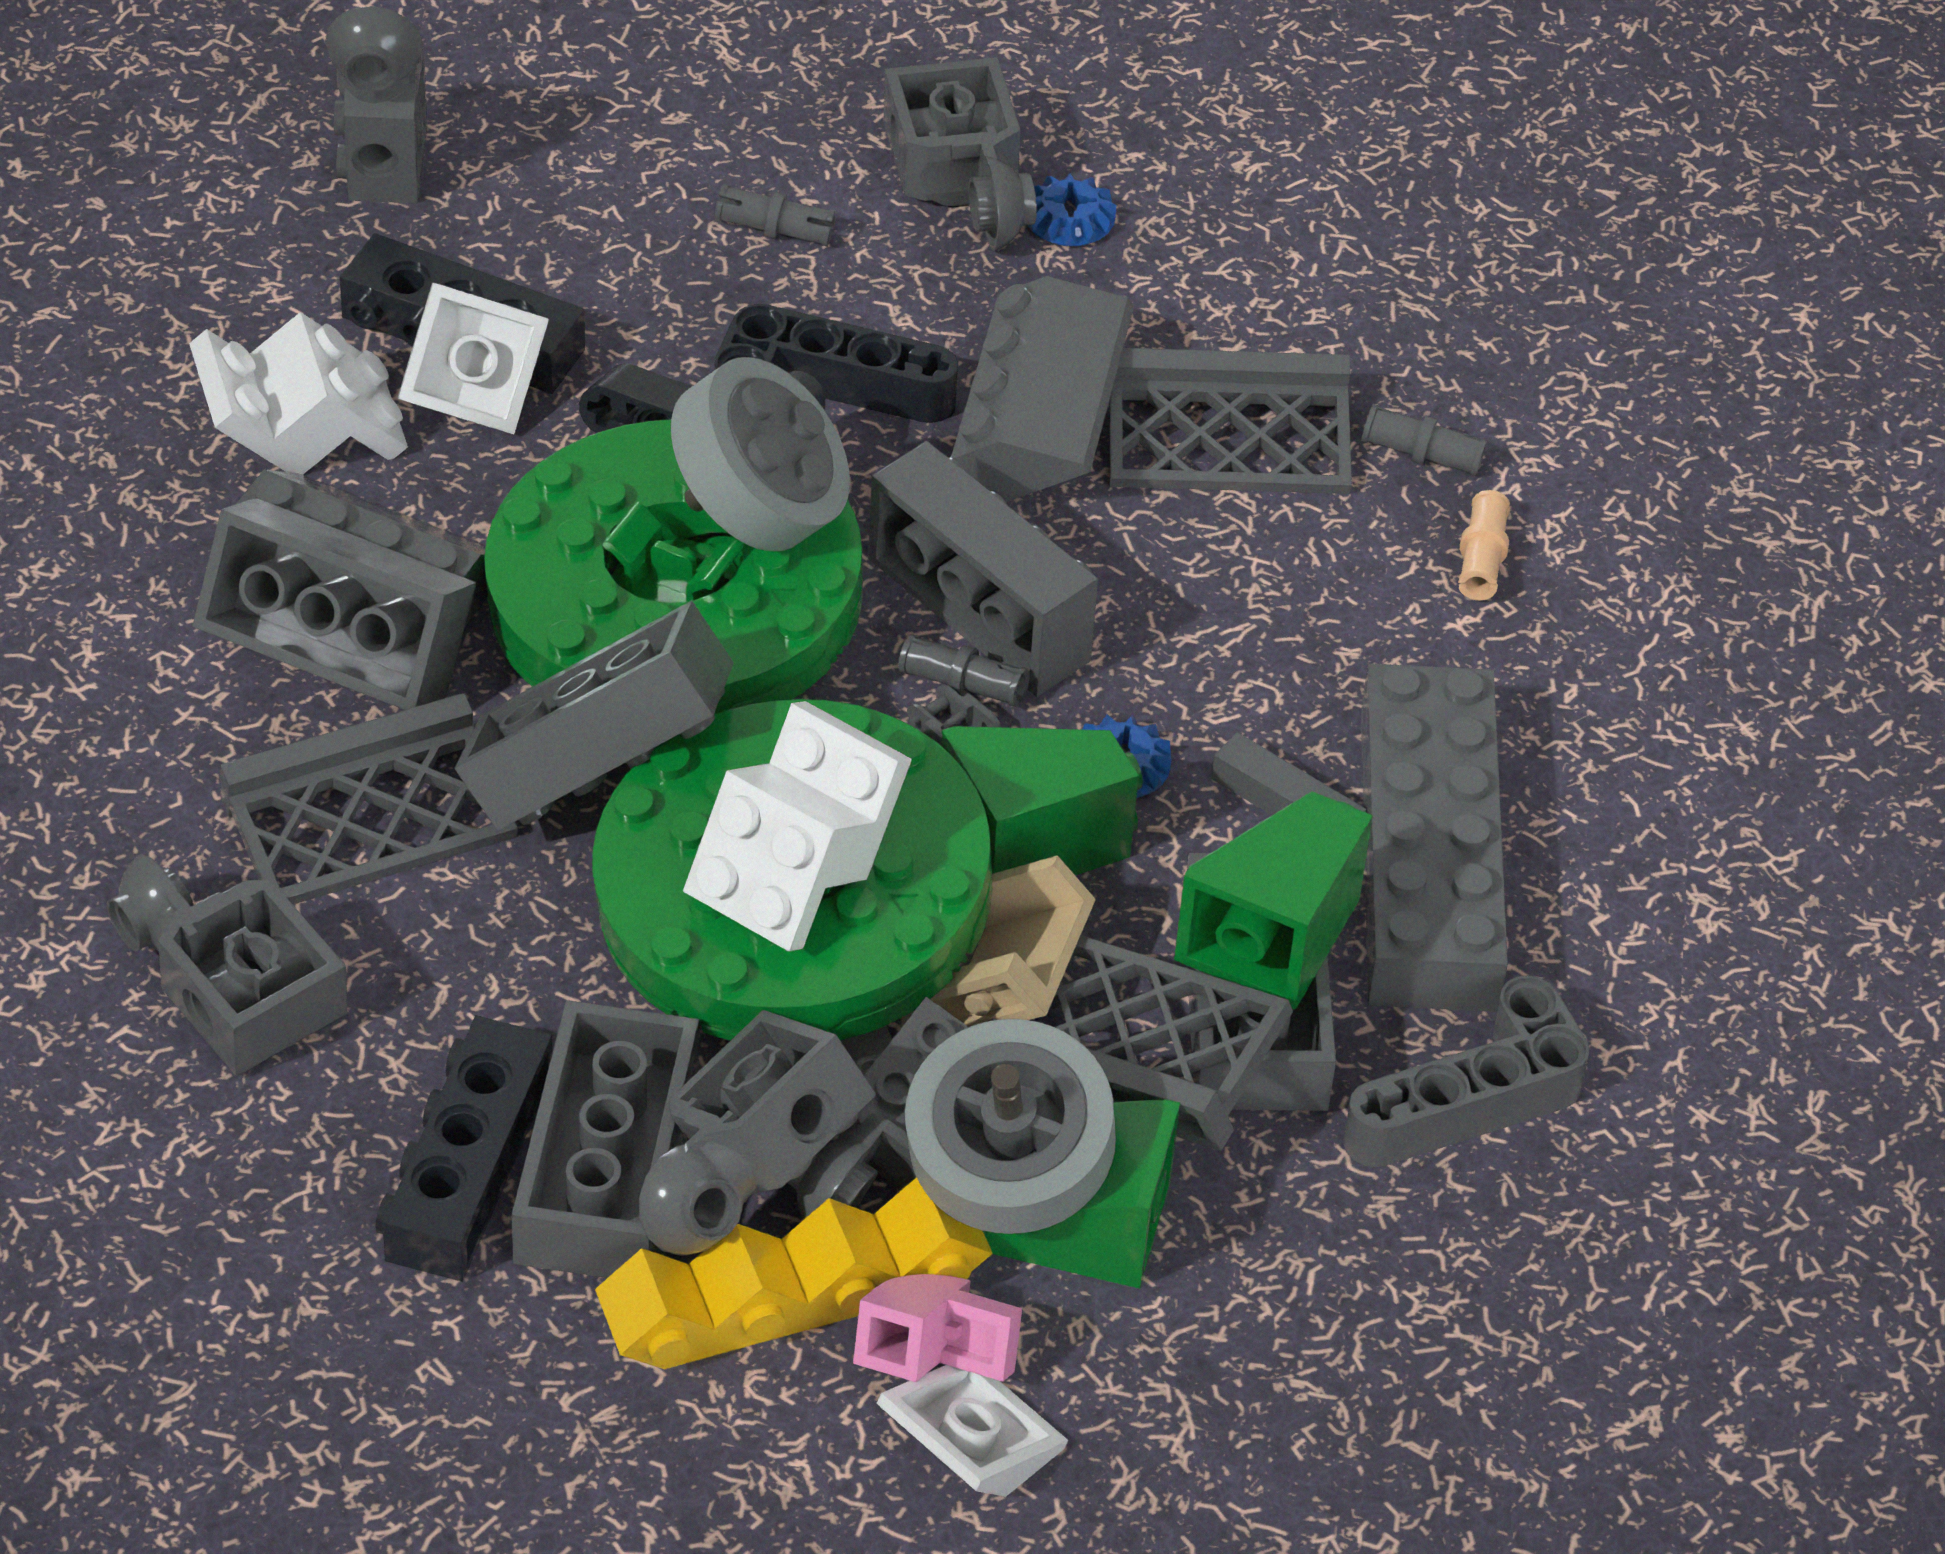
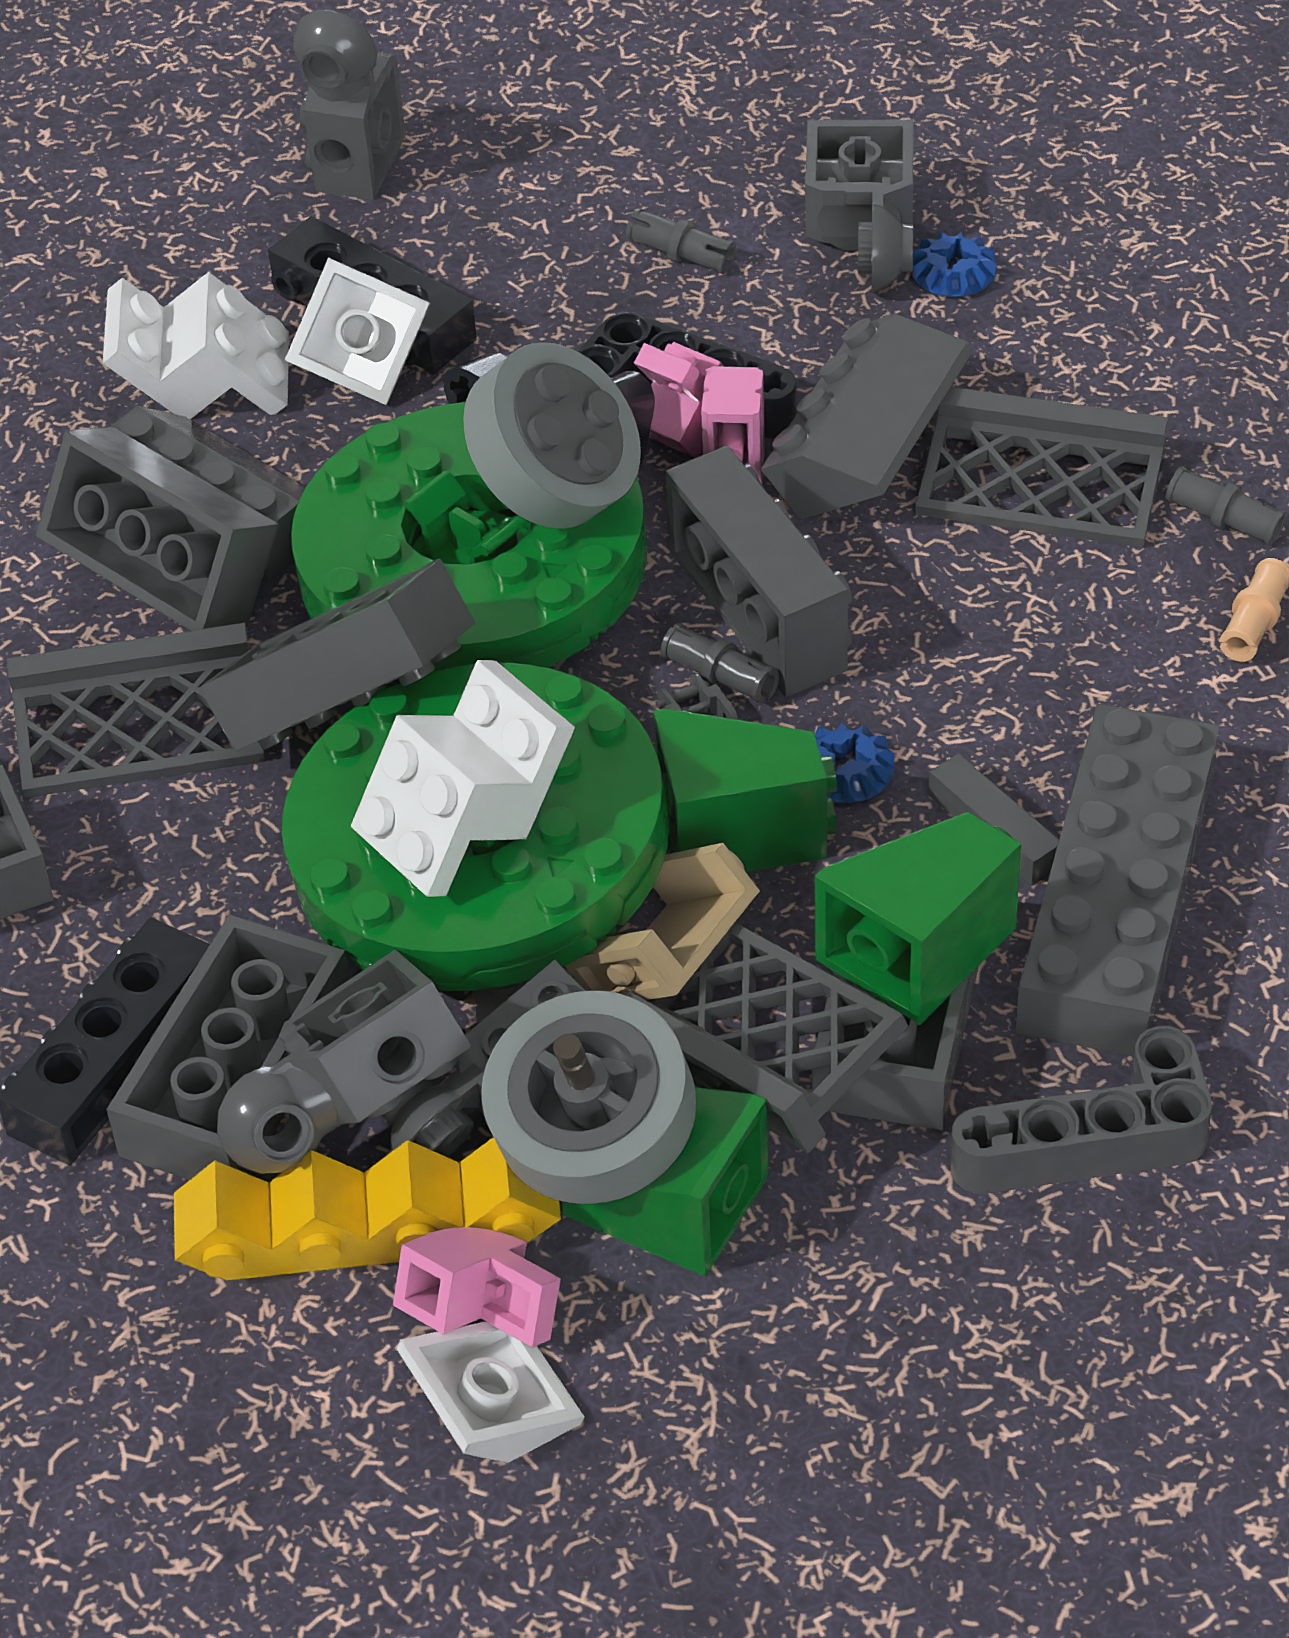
camera: 20 degrees right, 0 degrees up
(852, 386) = (678, 391): none -> bright pink brick
(909, 406) = (735, 414): none -> bright pink brick

